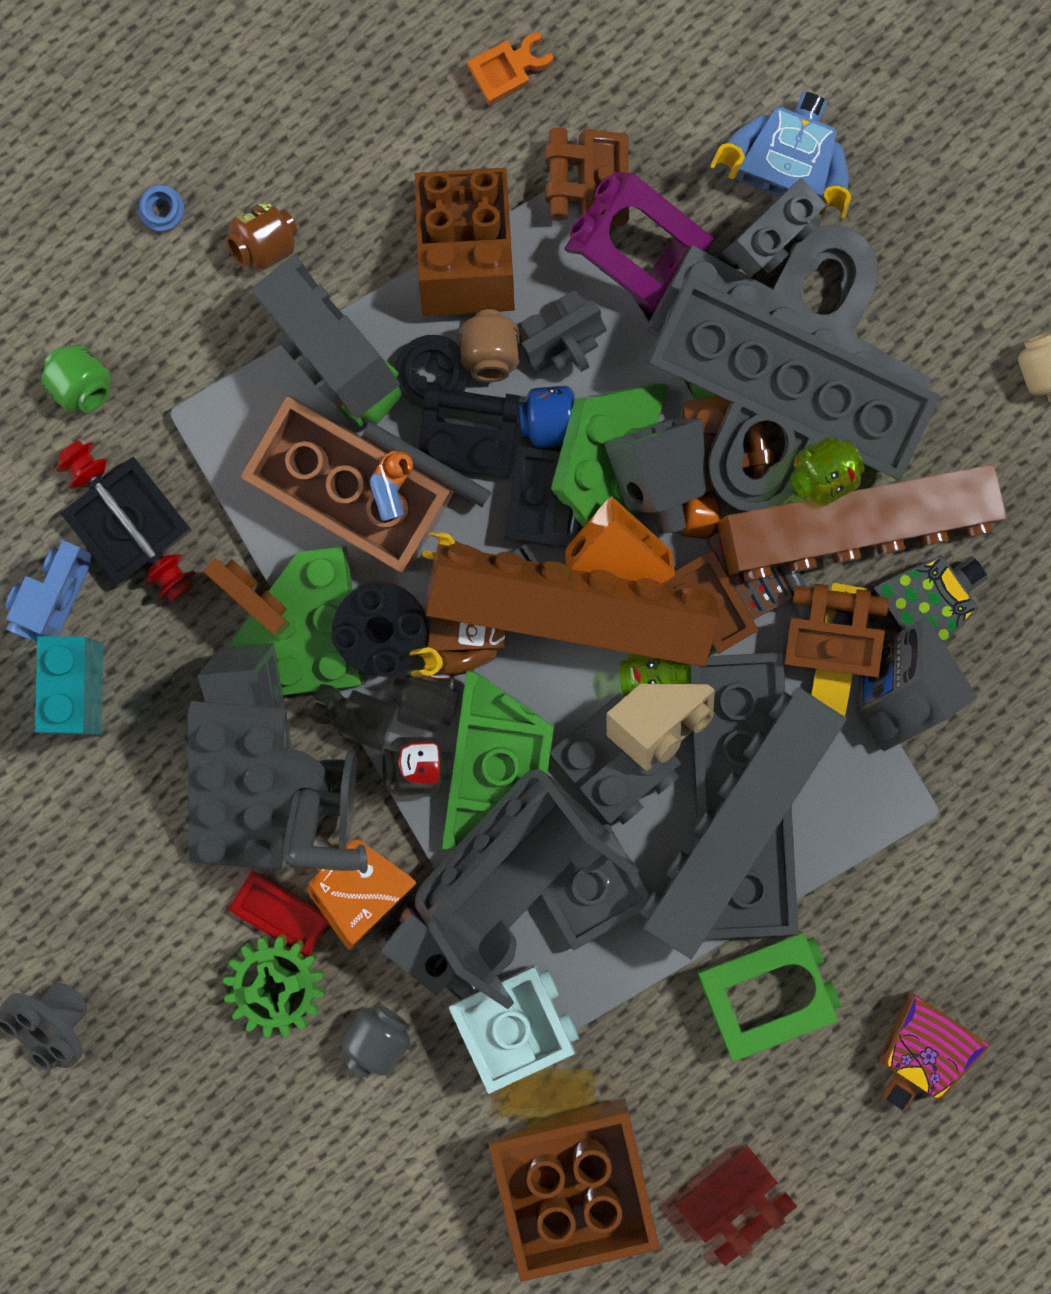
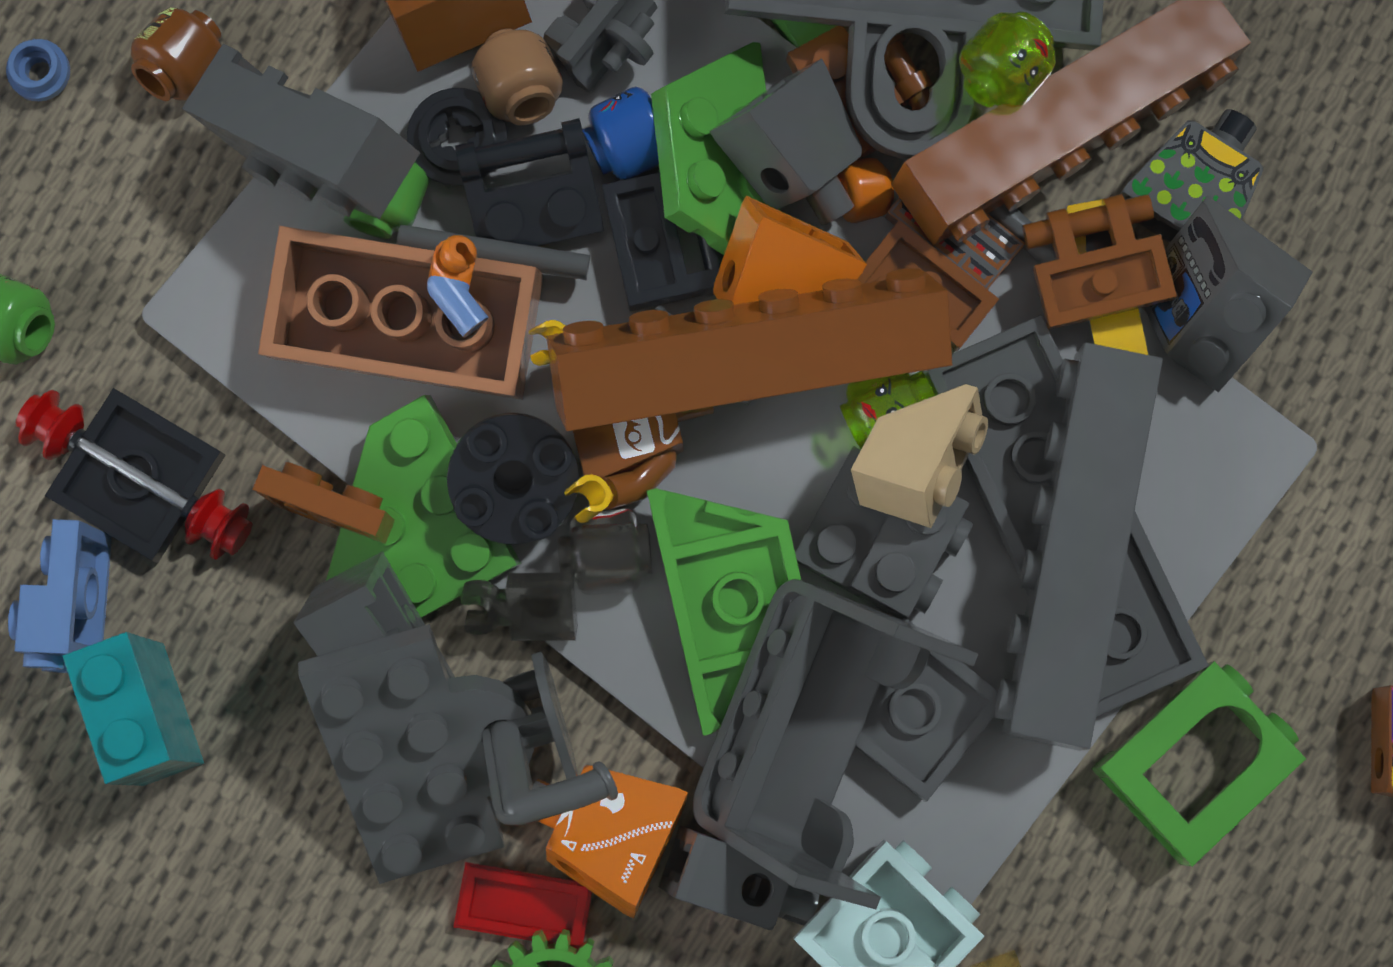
camera: 20 degrees left, 5 degrees down
(415, 766) = (628, 641): head -> none

